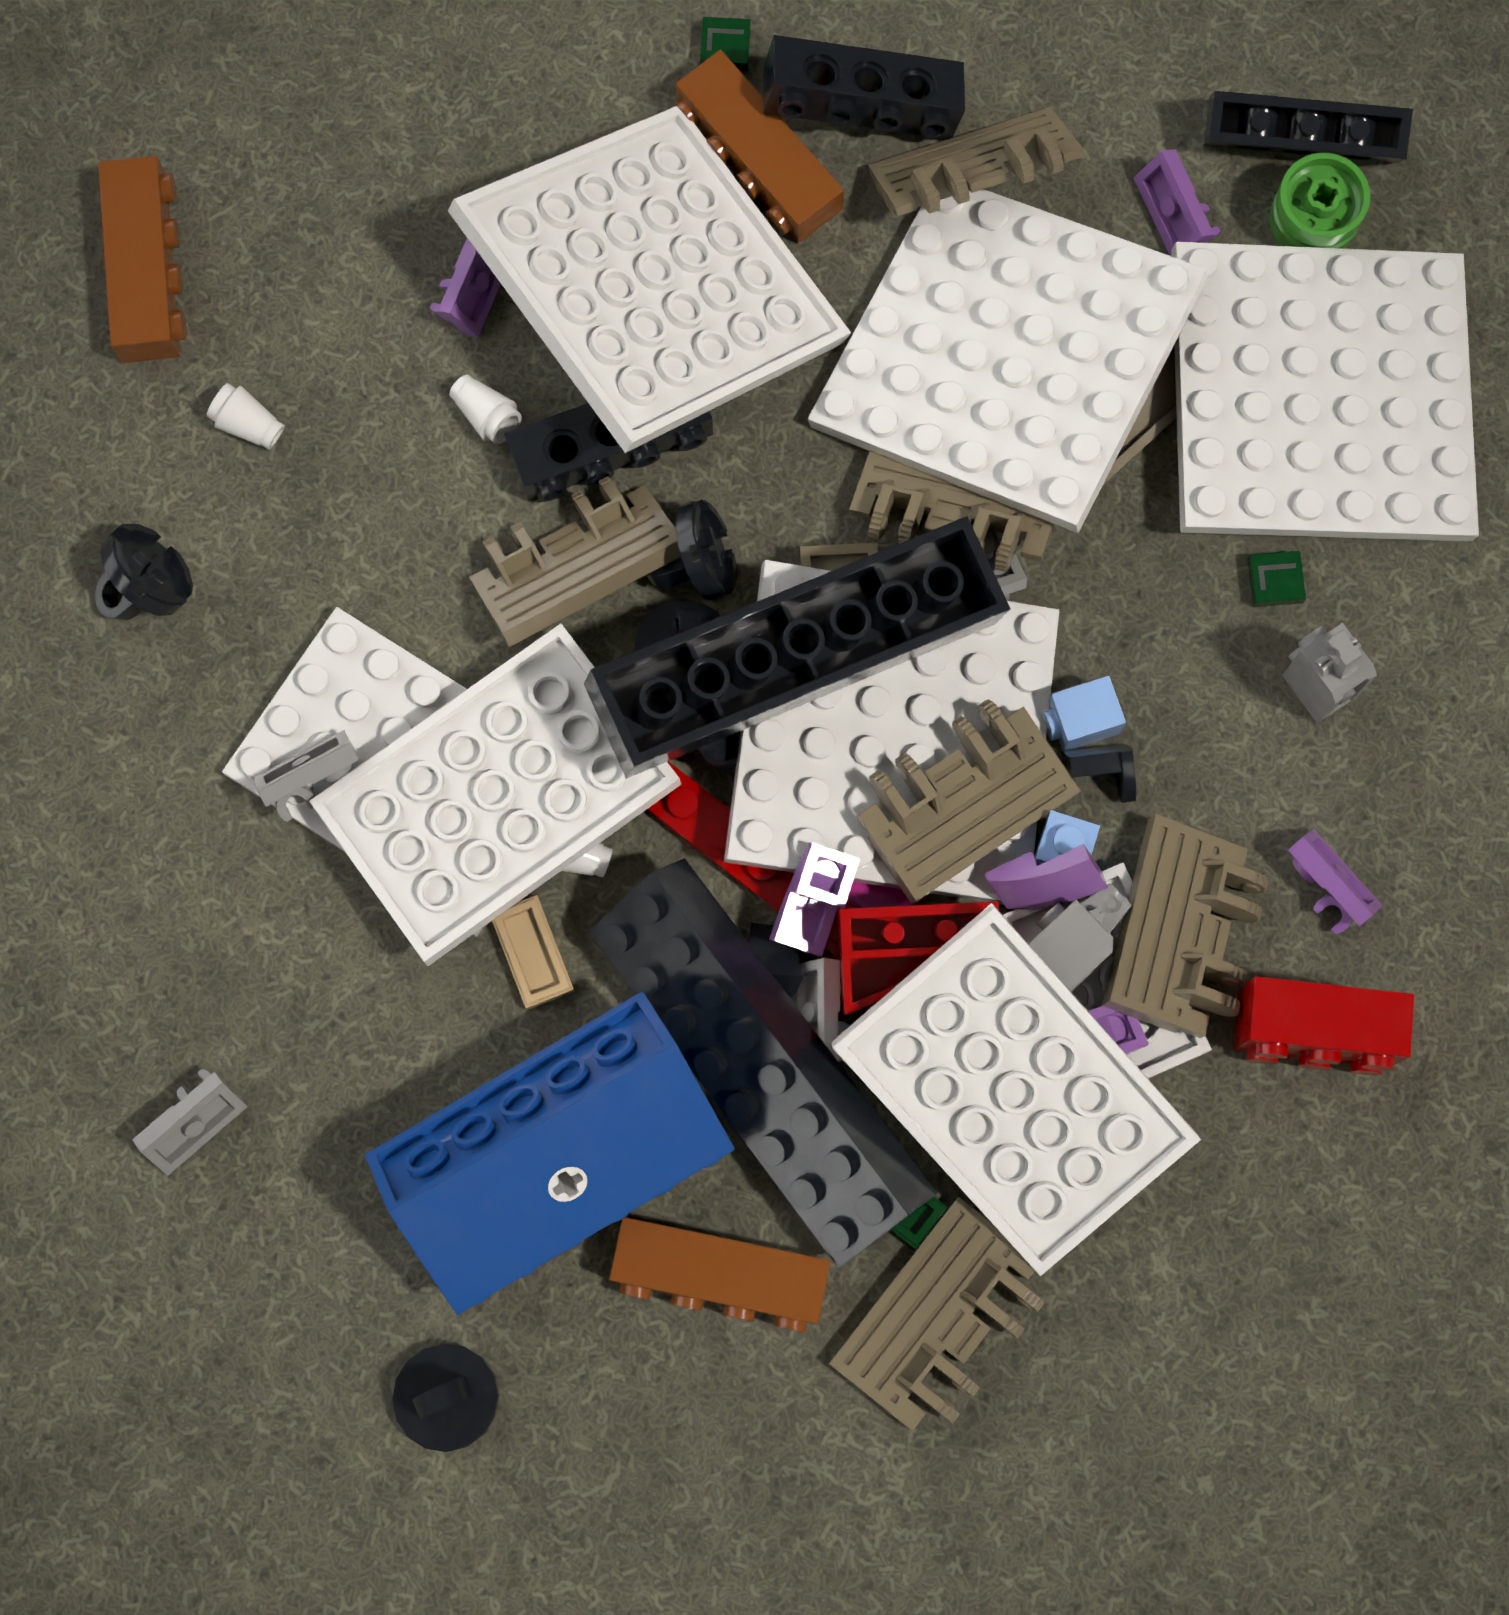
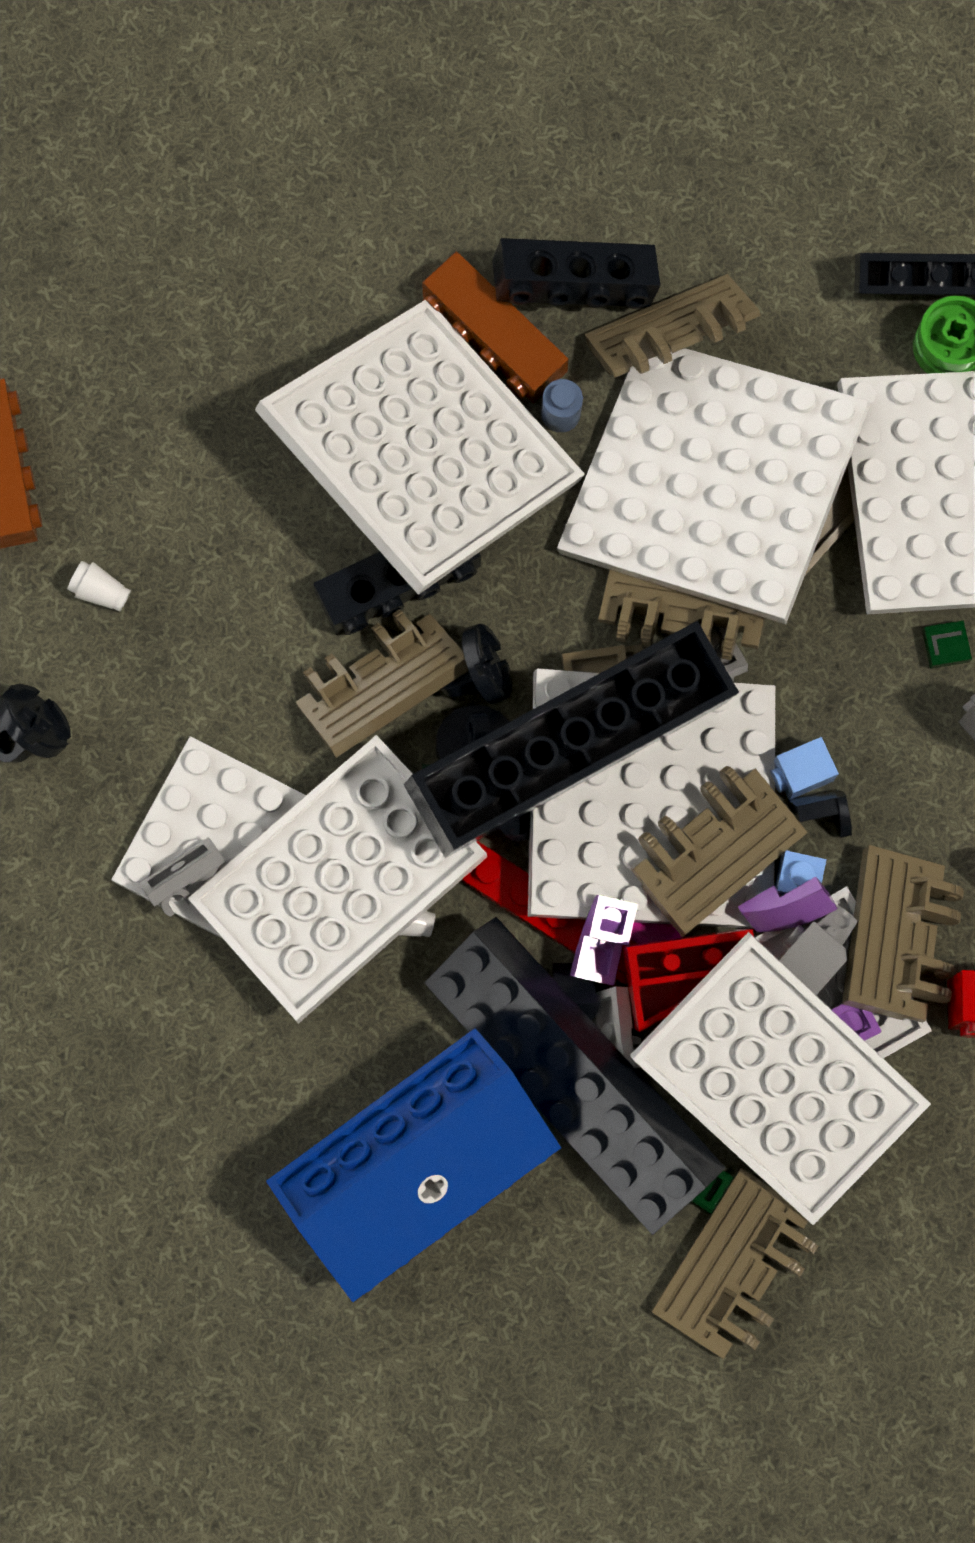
camera: 10 degrees left, 0 degrees up
(190, 1122) = (116, 1169): light grey plate -> none
(445, 1397) = (346, 1369): black tile -> none
(468, 293) = (270, 468): medium lavender plate -> none
(485, 409) = (294, 563): white cone -> none
(532, 953) = (379, 1004): tan tile -> none
(719, 1271) = (557, 1247): dark orange brick -> none
(730, 36) = (460, 238): dark green tile -> none
(830, 247) = (561, 405): none -> sand blue brick
(1173, 201) = (835, 344): medium lavender plate -> none

